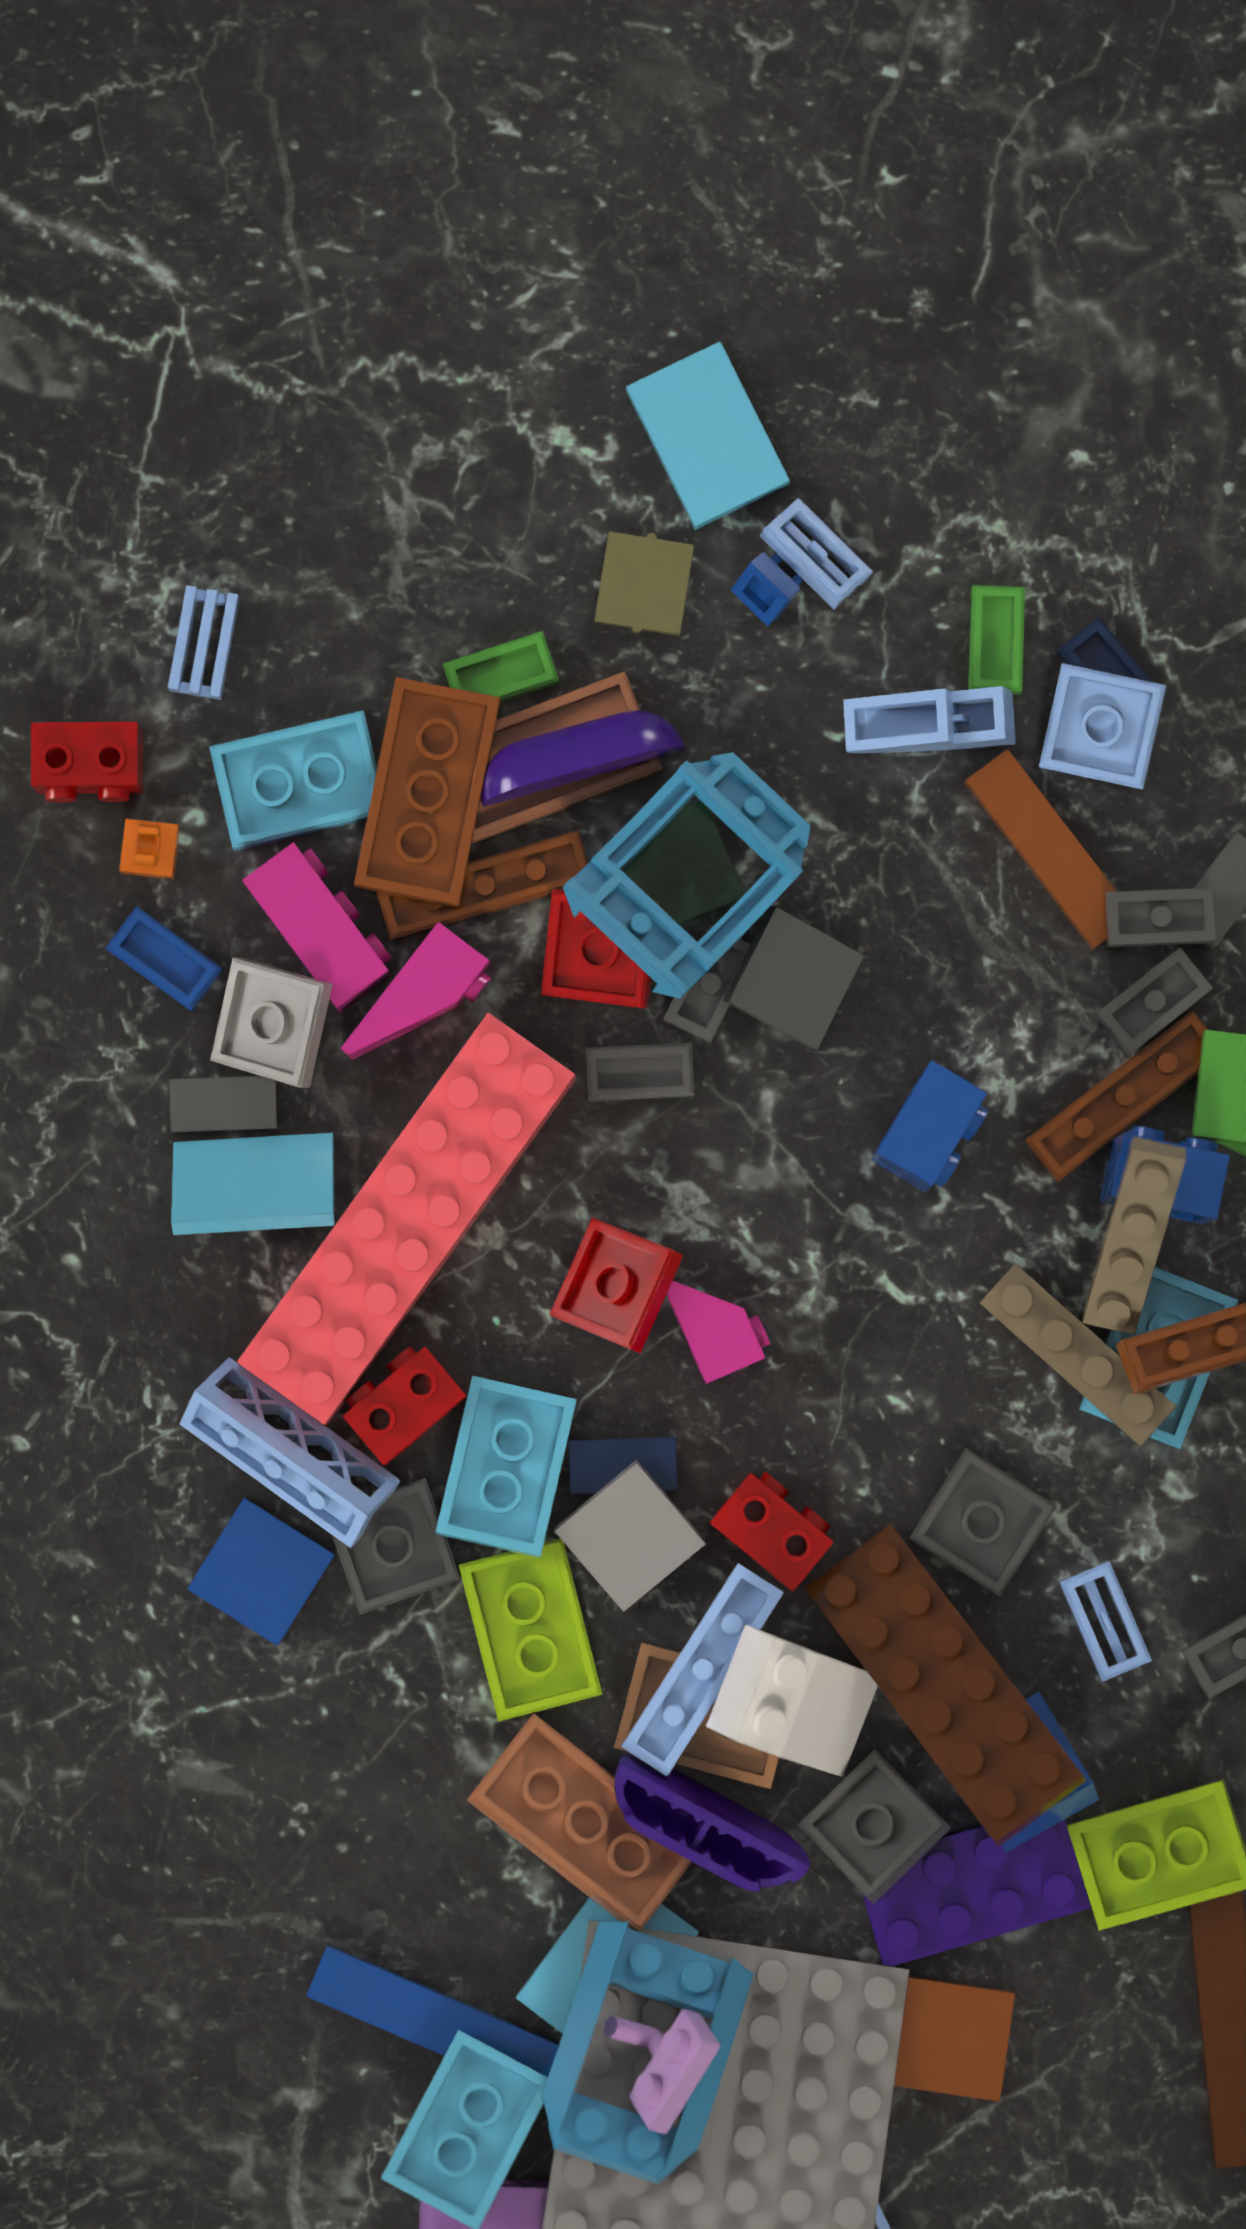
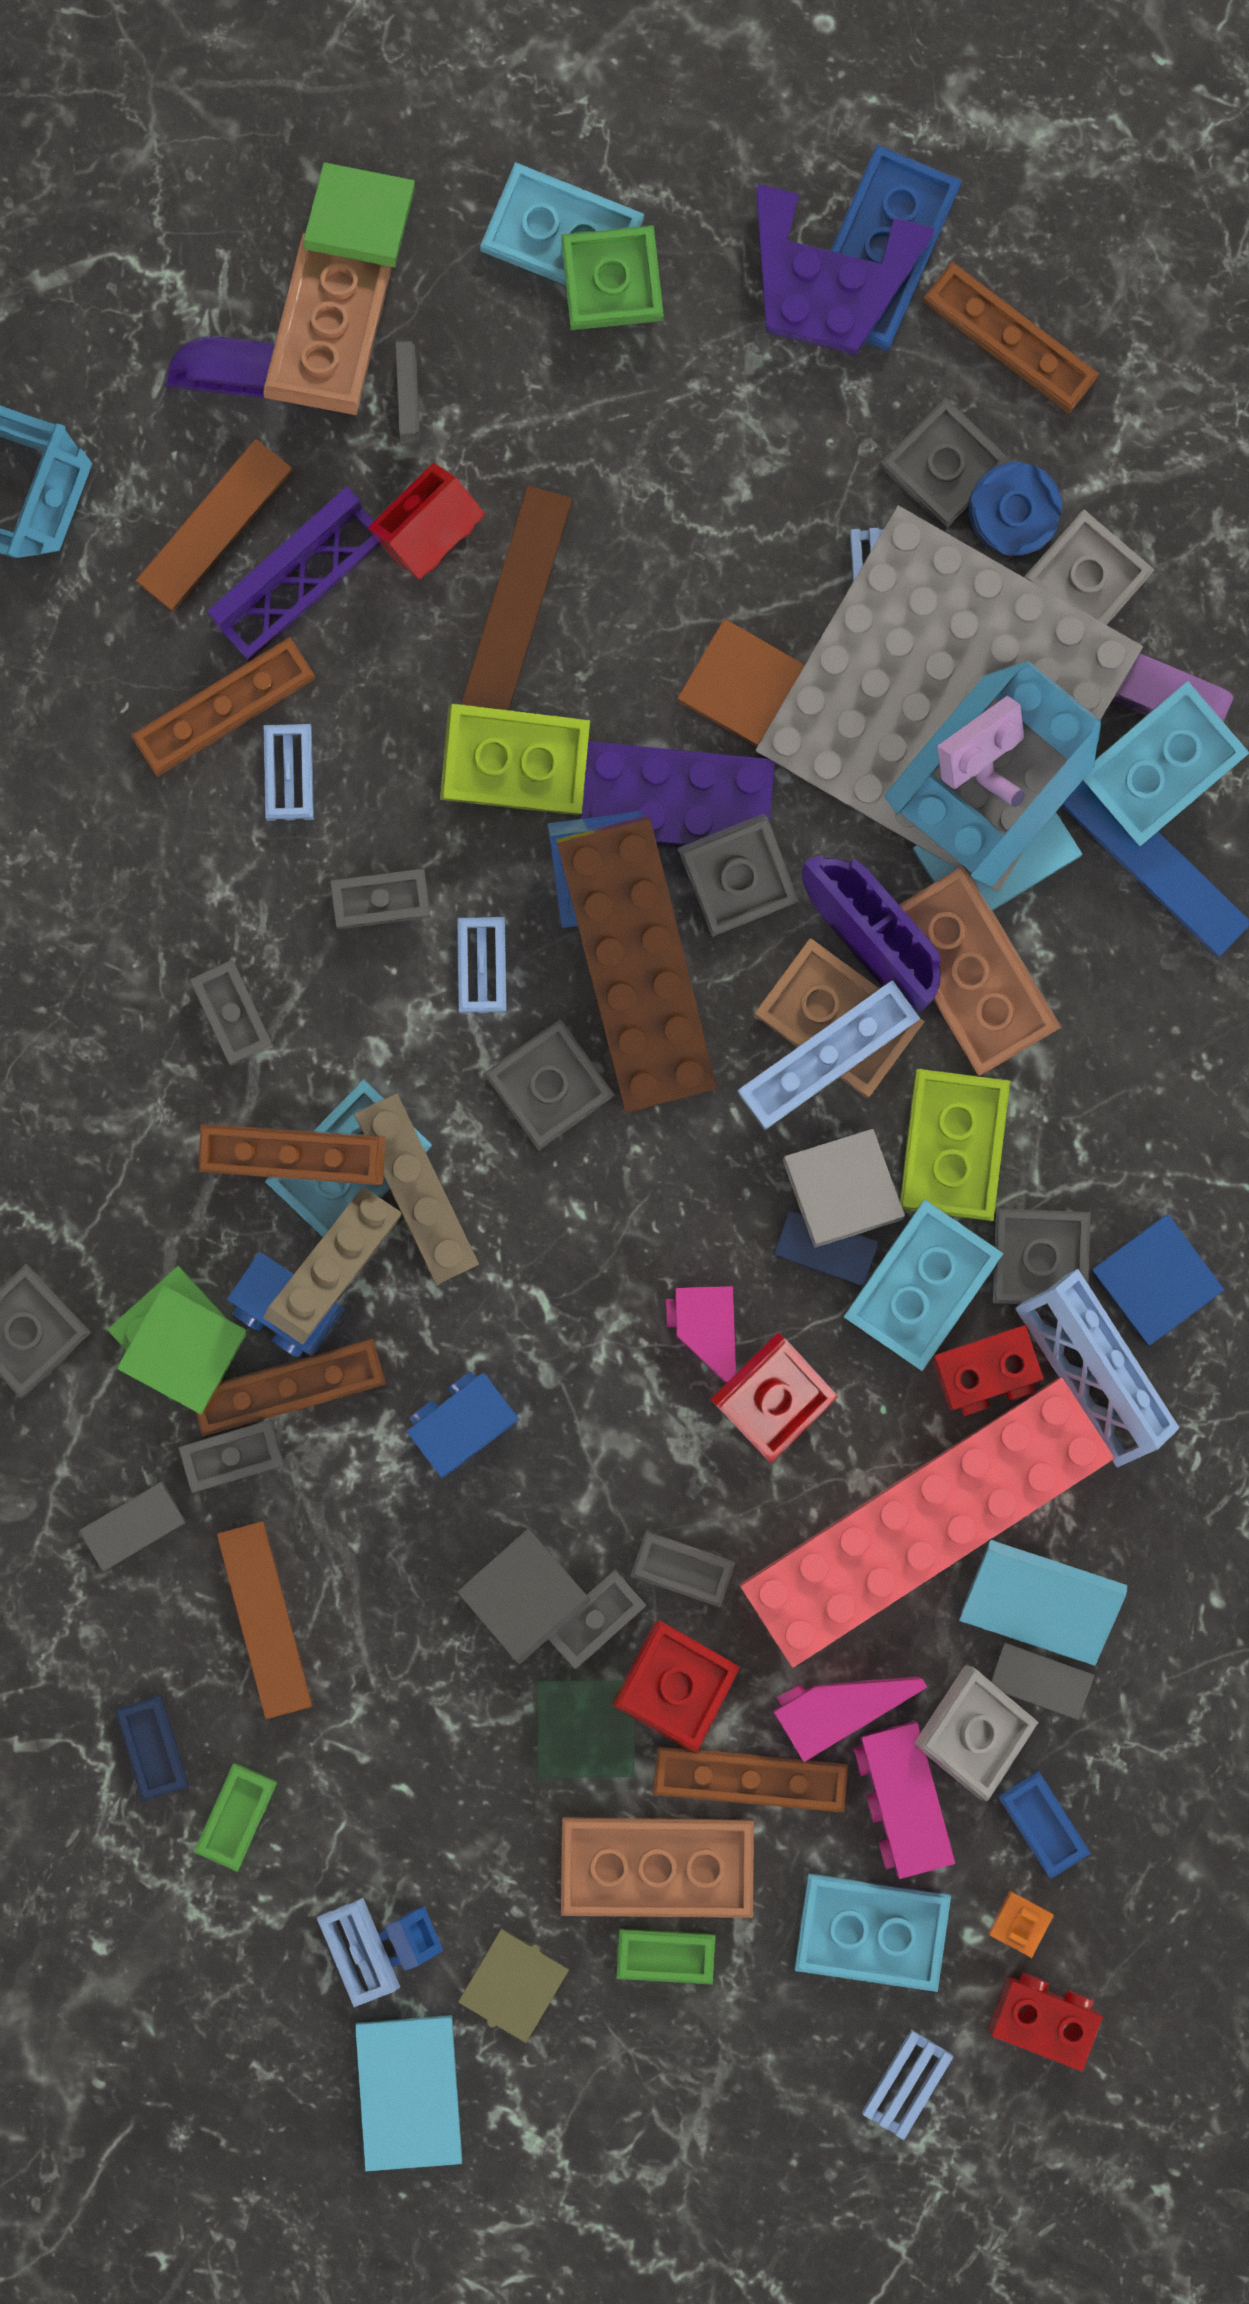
camera: 165 degrees left, 0 degrees up
(427, 792) = (769, 1877): dark orange plate -> none
(578, 754) = (629, 1859): dark purple brick -> none
(642, 925) = (636, 1689): dark azure wedge -> none
(772, 1530) = (725, 1146): red brick -> none
(792, 1702) = (766, 999): white slope -> none
(930, 721) = (321, 1769): light blue slope -> none
(1102, 726) = (178, 1706): light blue tile -> none
(1160, 917) = (198, 1523): dark grey plate -> none

